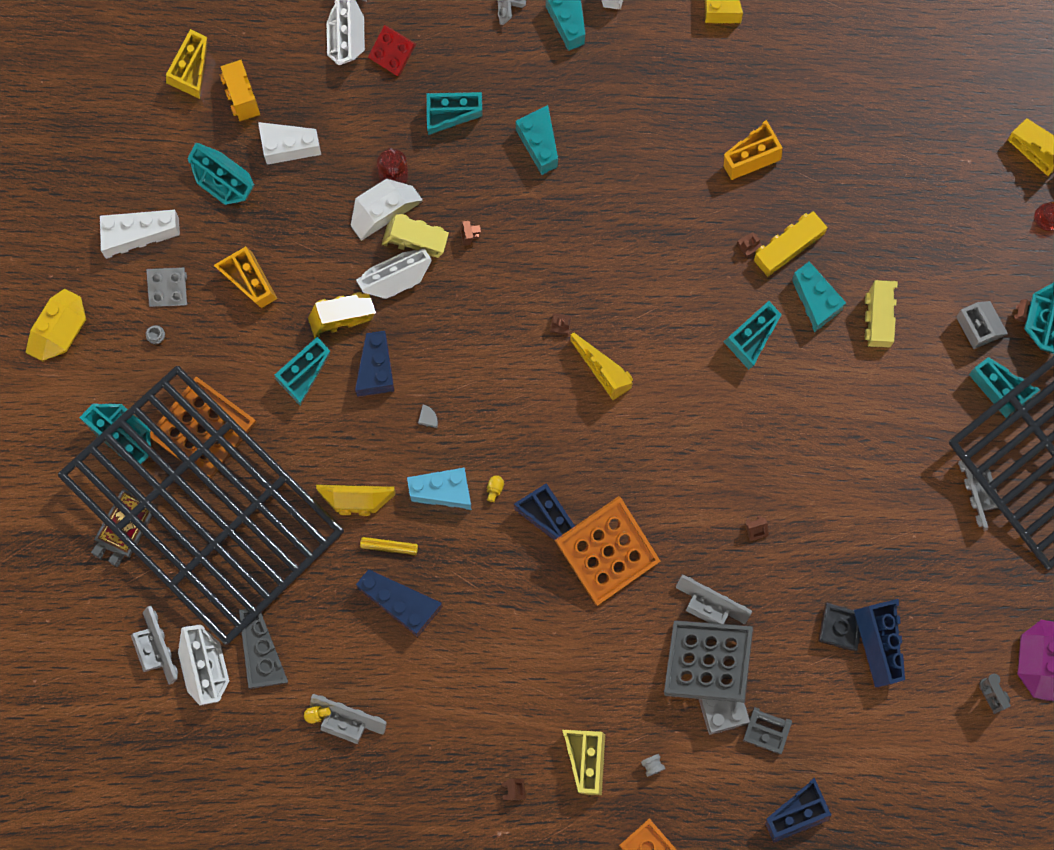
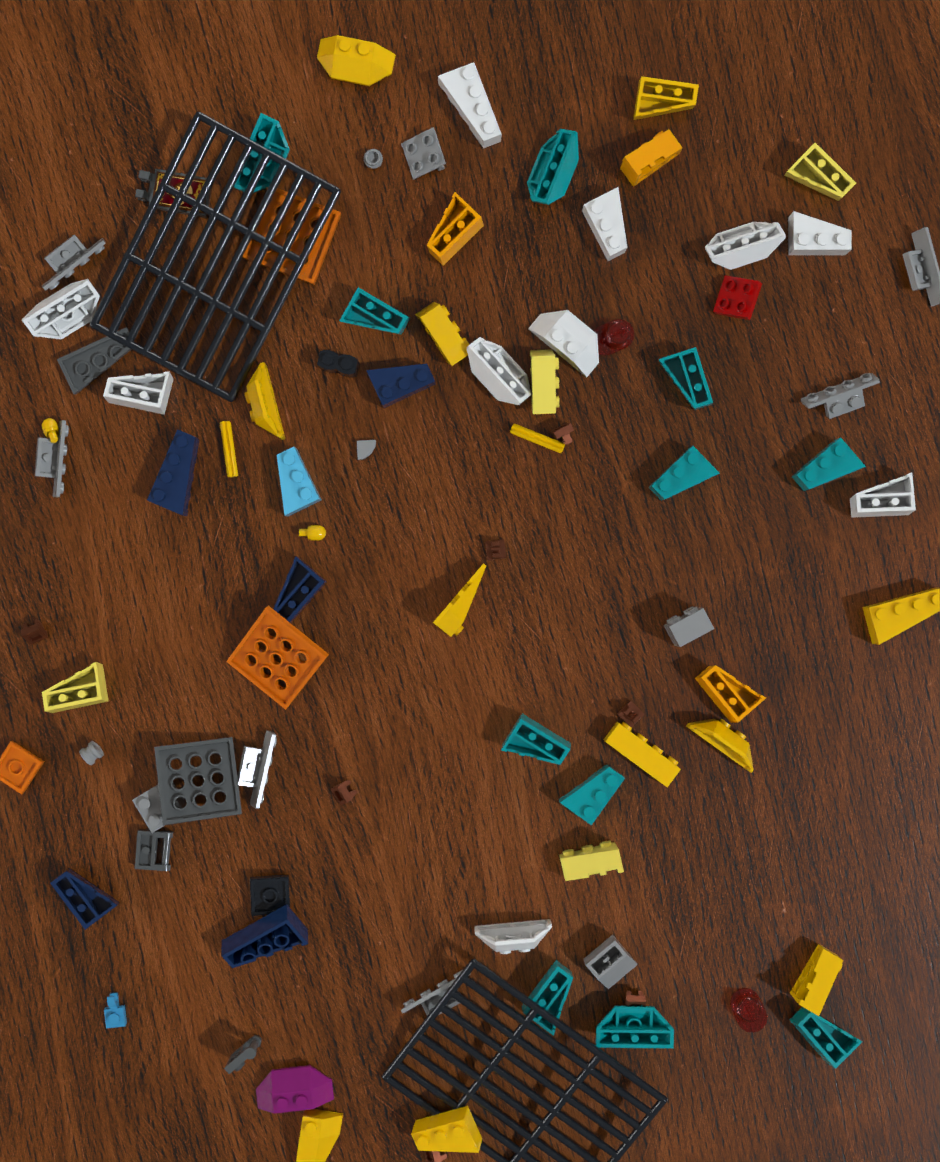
camera: 75 degrees right, 15 degrees up
(307, 613) = (142, 392): none -> white wedge
(337, 421) = (333, 363): none -> black brick
(466, 258) = (537, 438): none -> yellow axle
(681, 169) = (688, 626): none -> light grey brick
(797, 167) = (725, 740): none -> yellow wedge
(925, 818) = (114, 1014): none -> dark azure plate
(936, 404) = (513, 936): none -> white wedge

